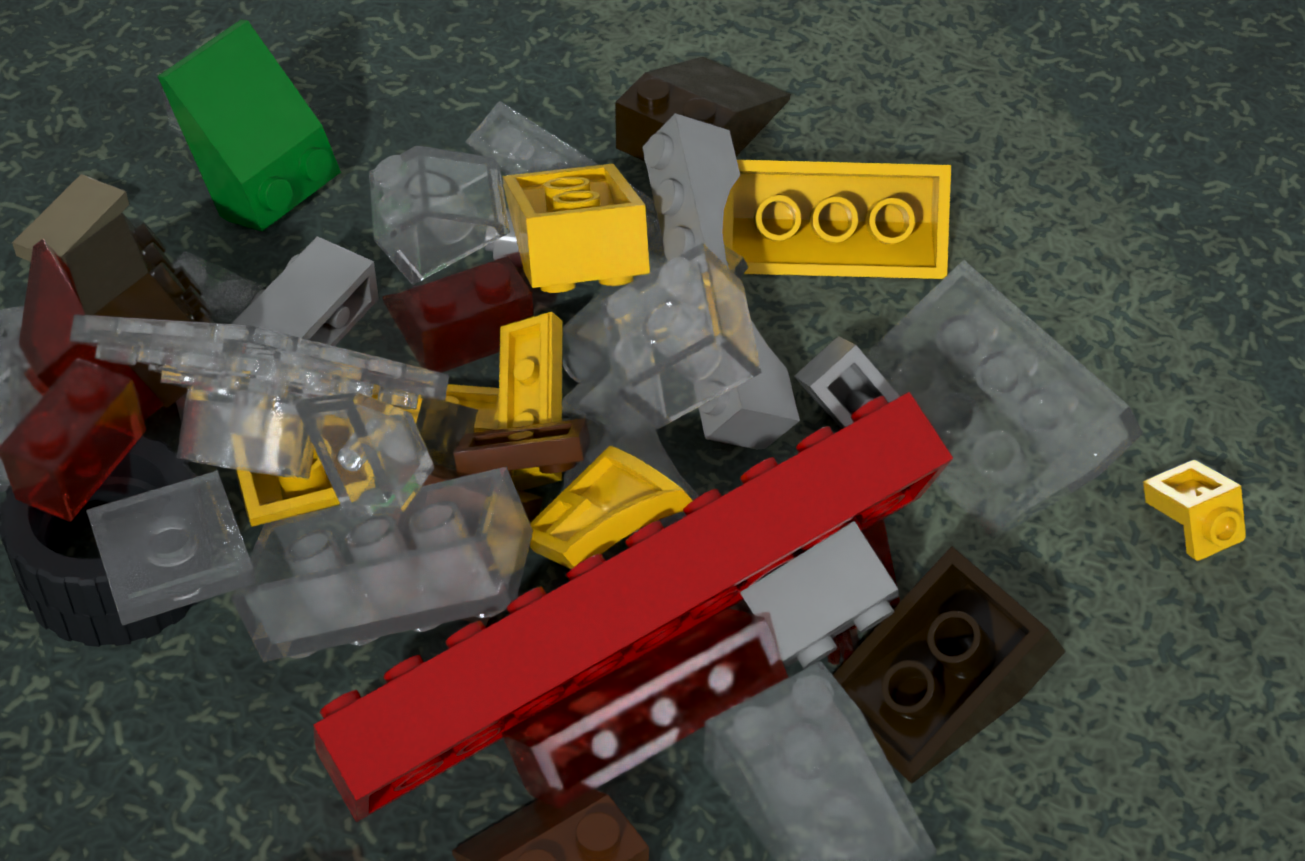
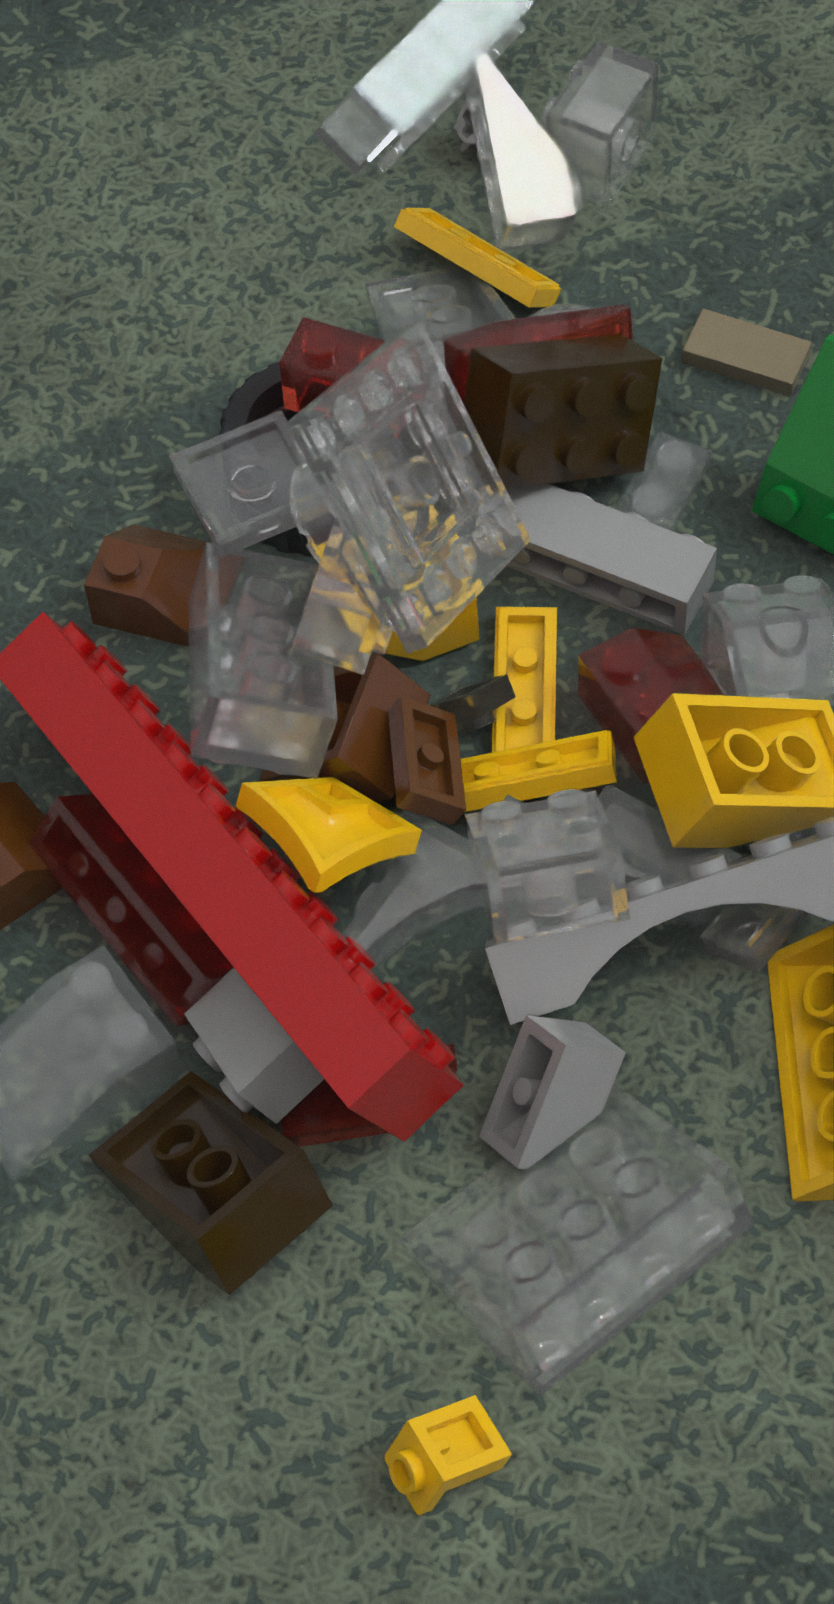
camera: 90 degrees right, 10 degrees up
(220, 703) = (144, 583): none -> reddish brown slope

